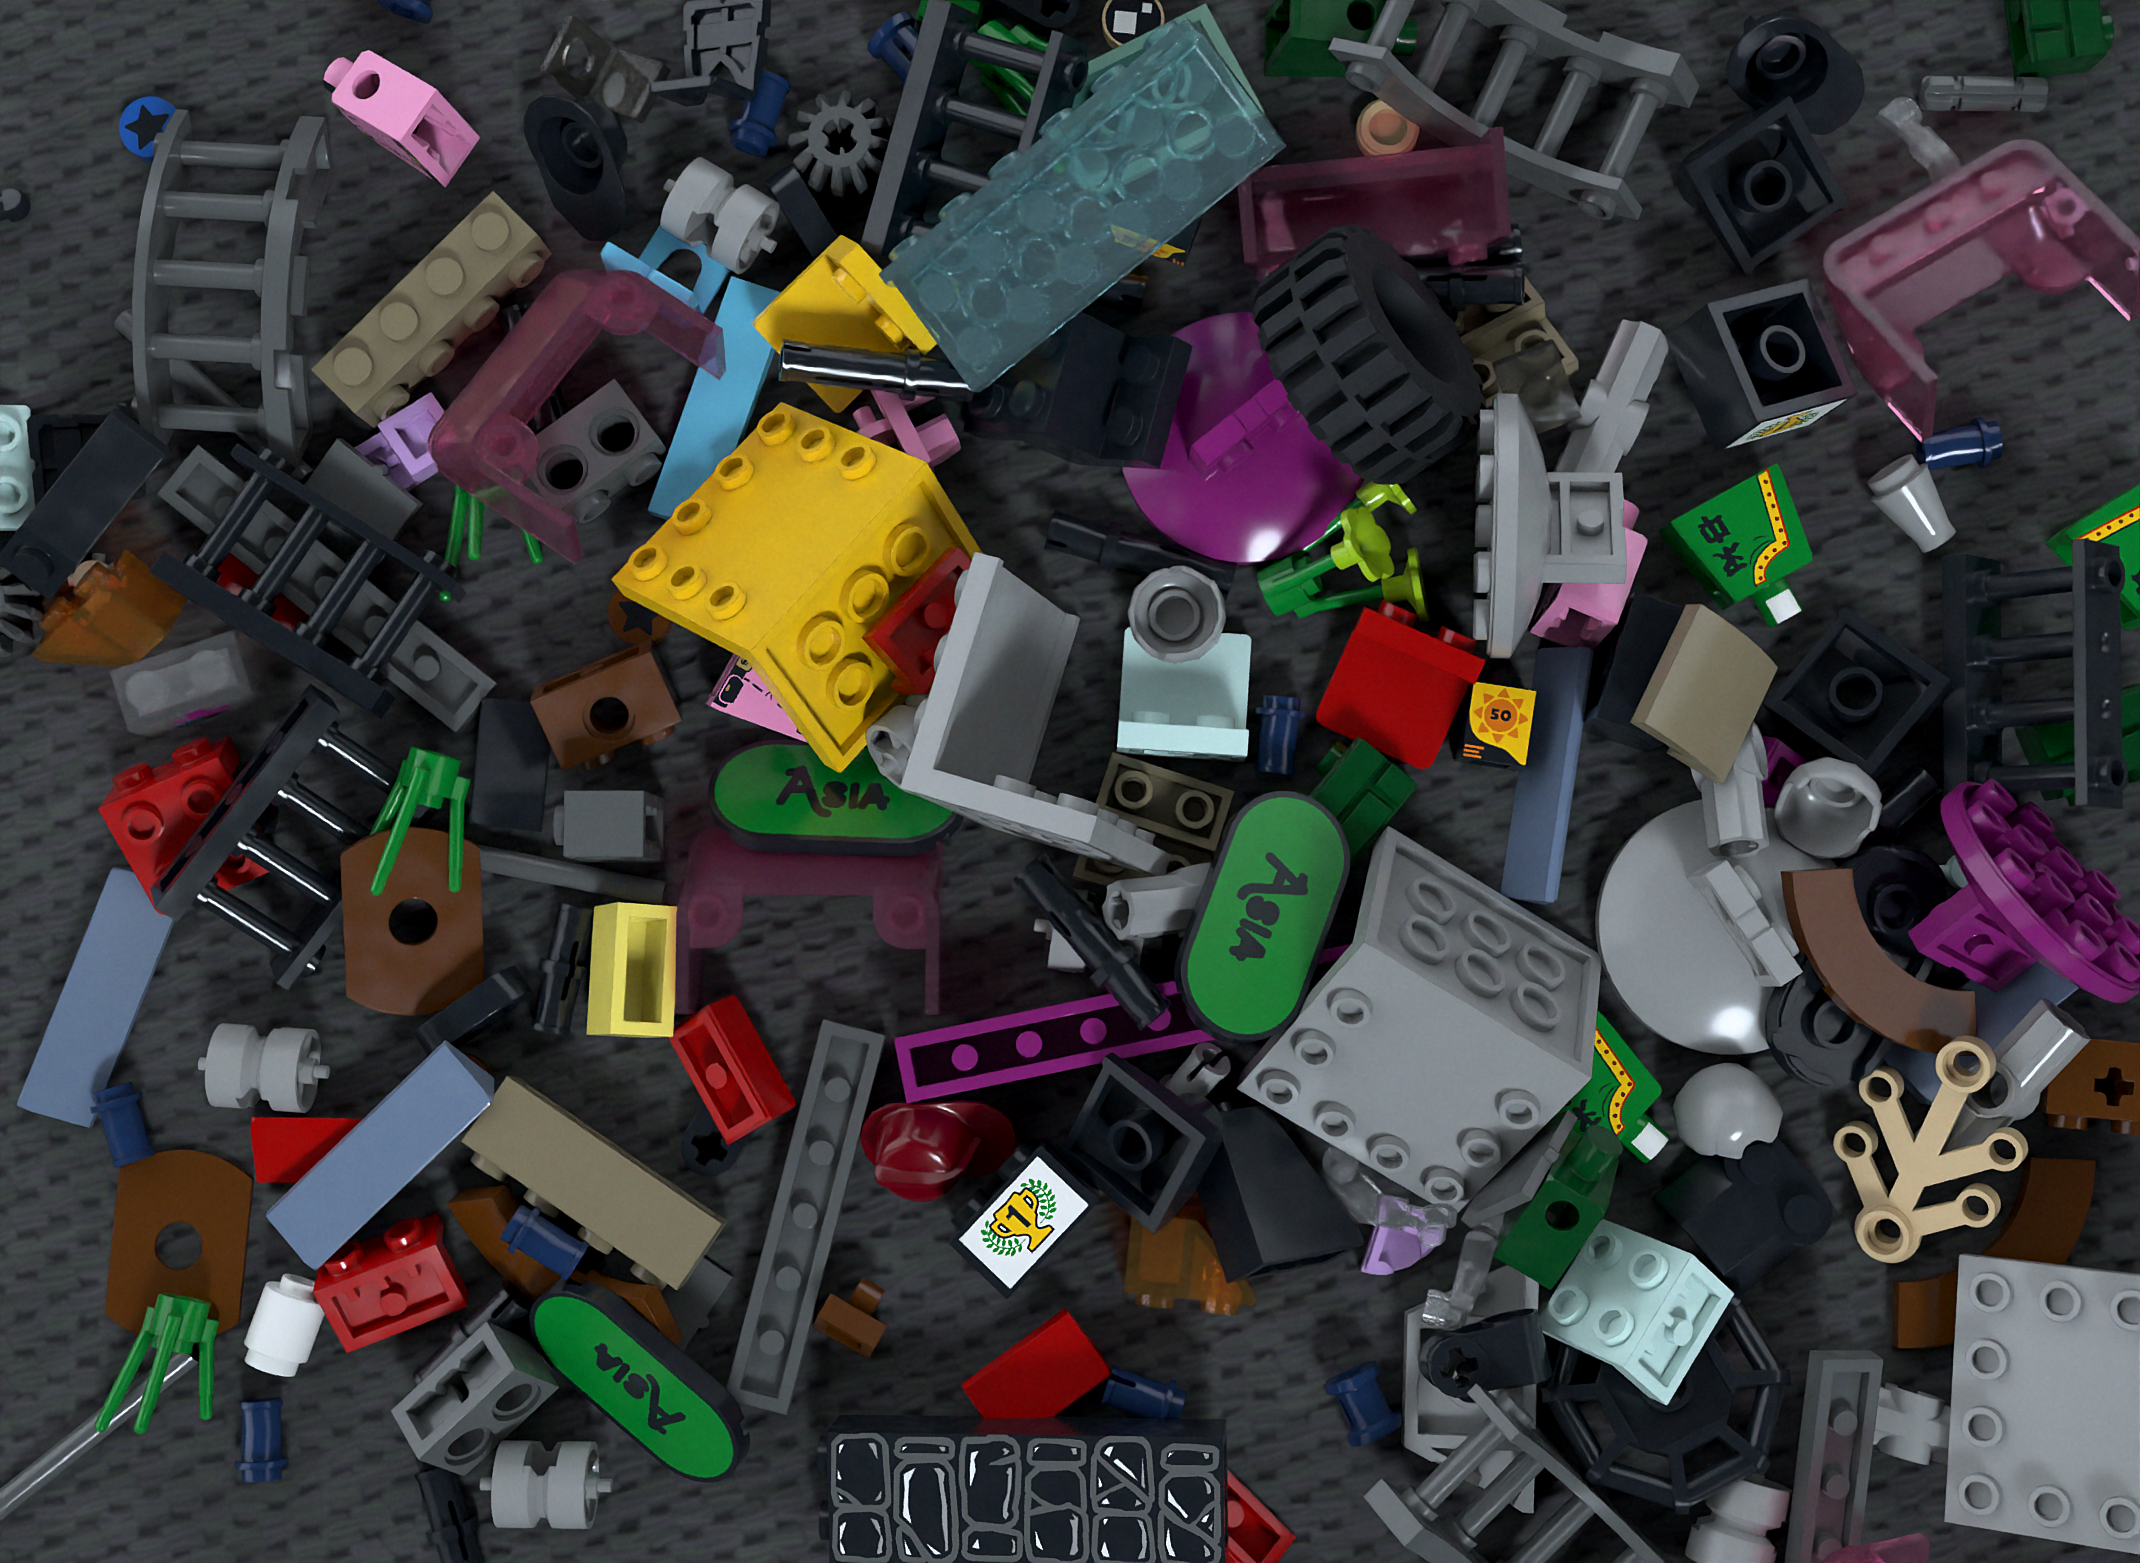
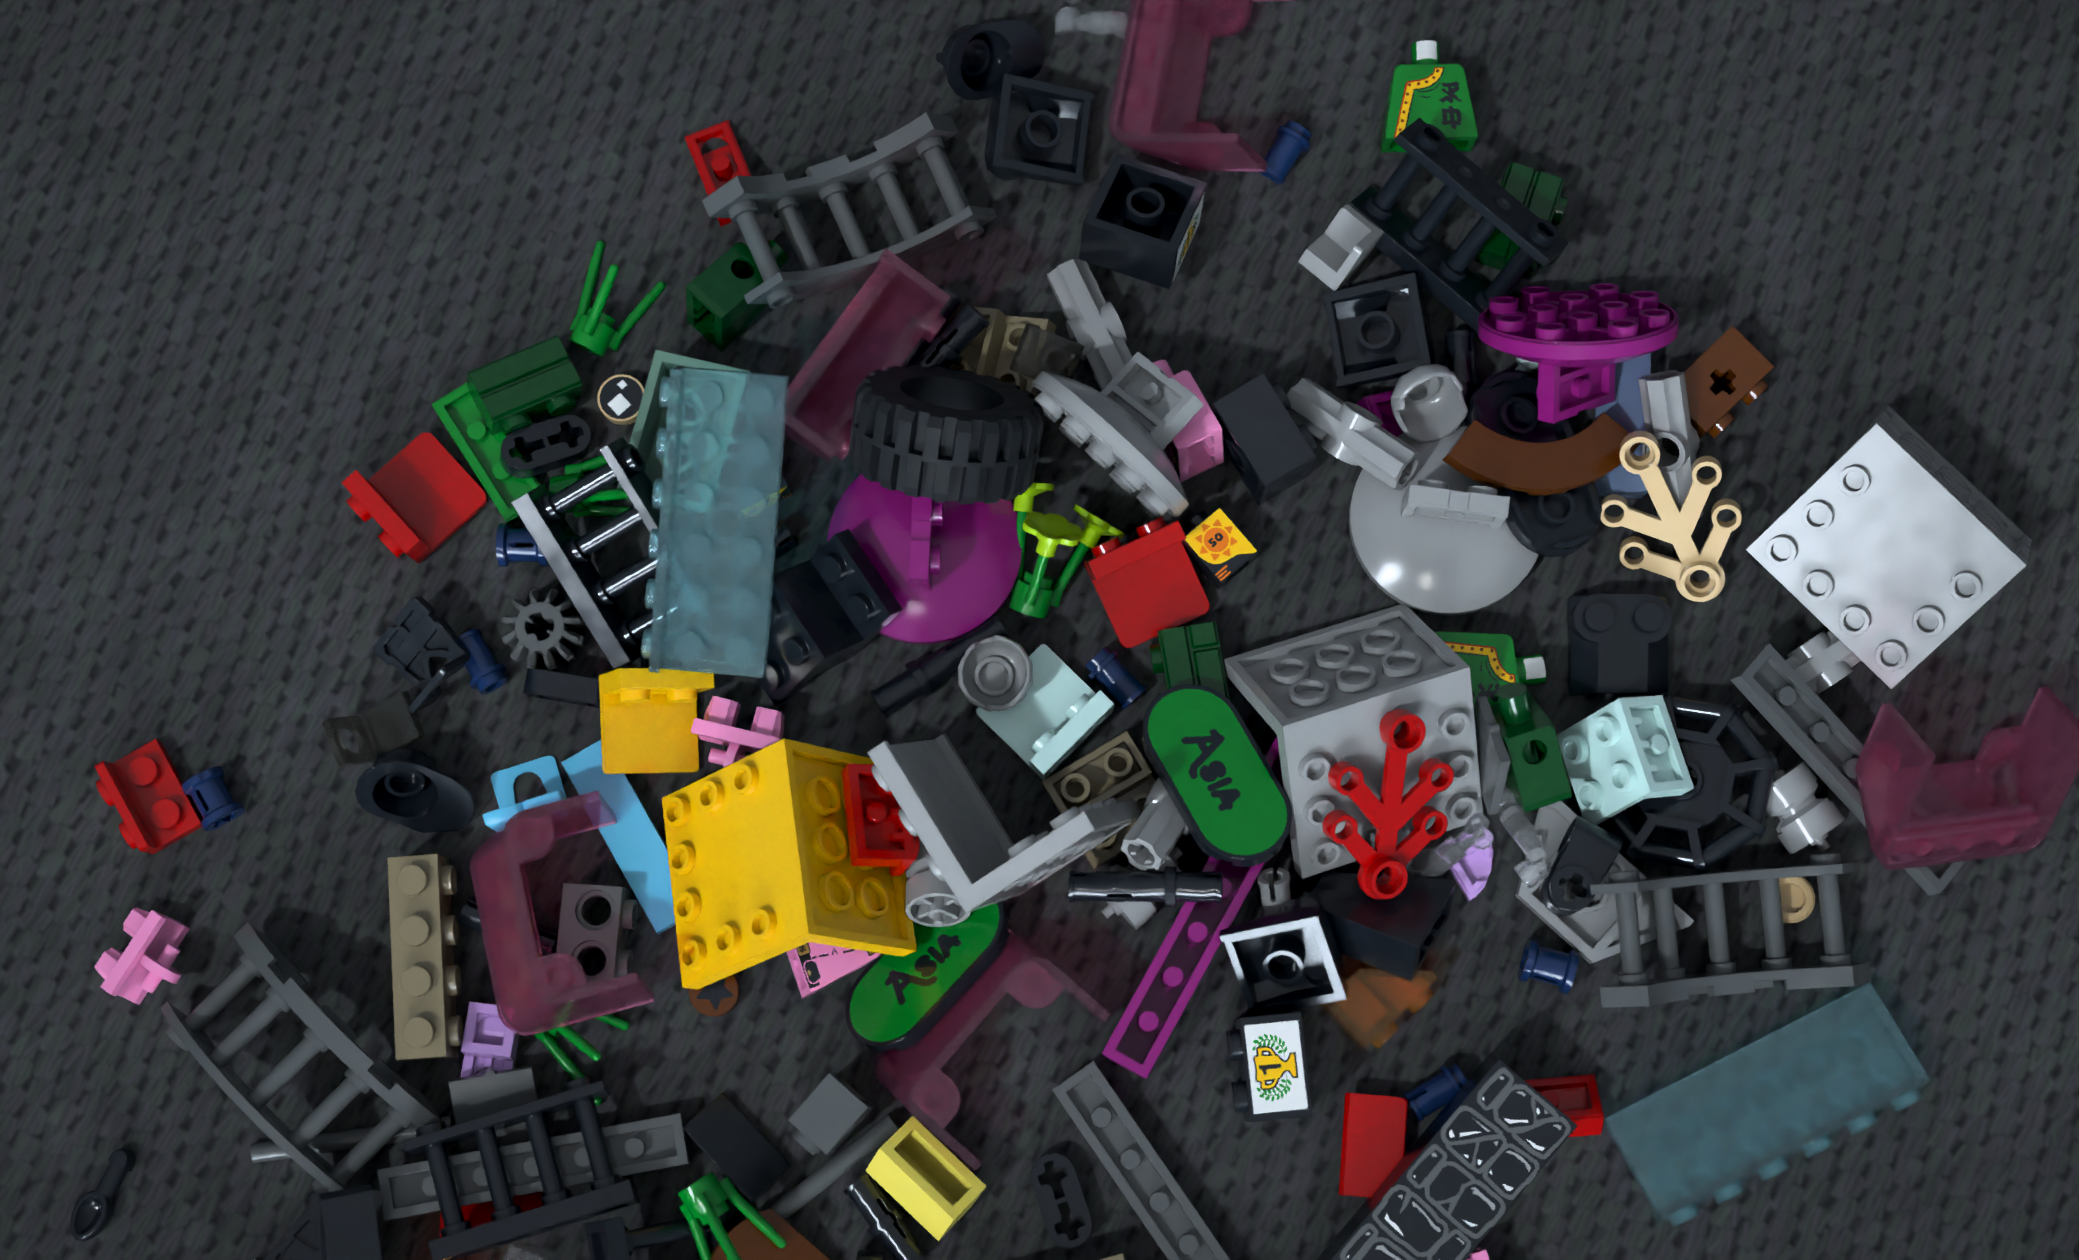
camera: 55 degrees left, 5 degrees down
(142, 122) = (149, 1036): blue tile -> none
(212, 54) = (145, 958): none -> bright pink hips
(390, 105) = (287, 874): bright pink torso -> none
(629, 675) = (745, 1028): reddish brown brick -> none
(712, 211) = (520, 737): light grey wheel -> none
(731, 1068) = (1034, 1170): red slope -> none
(852, 1321) = (1246, 1228): reddish brown tile -> none
(864, 369) = (689, 732): black pin -> none
(930, 1145) = (1182, 1090): dark red piece -> none
(1379, 1122) = (1392, 809): none -> red plant
(1384, 130) = (817, 313): tan tile -> none
(1548, 779) = (1276, 545): sand blue slope -> none
(1705, 692) = (1304, 413): dark tan slope -> none
(1726, 1111) = (1553, 609): light grey hair -> none
(1745, 545) = (1238, 318): green torso -> none
(1910, 586) = (1341, 248): none -> light grey panel
(1912, 502) = (1294, 205): light grey cone -> none
(2039, 1228) = (1769, 492): reddish brown tile -> none

